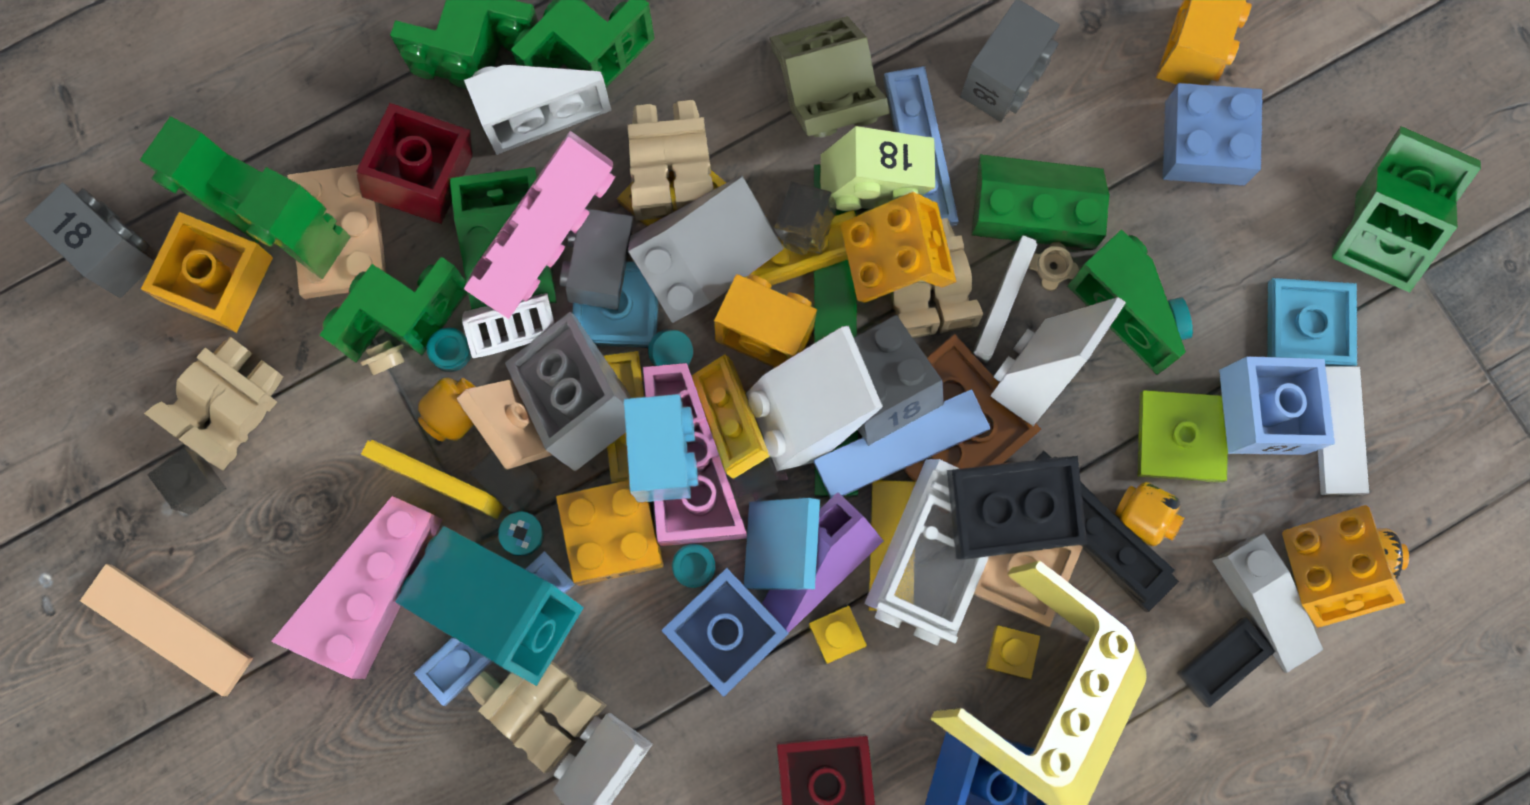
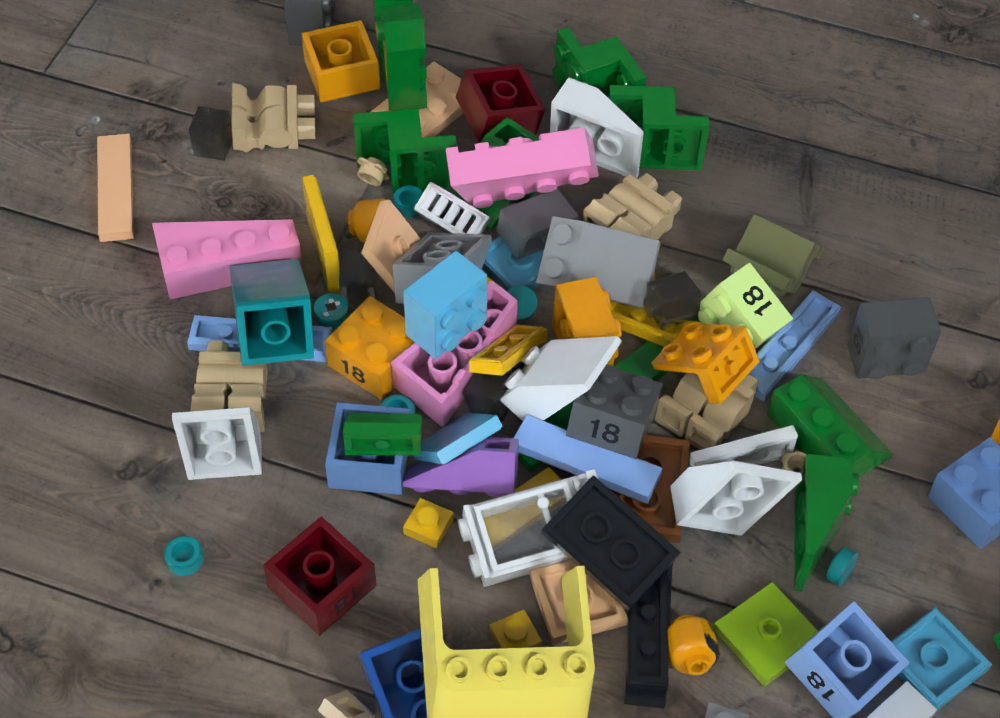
camera: 50 degrees right, 25 degrees down
(737, 616) = (382, 434): none -> green panel

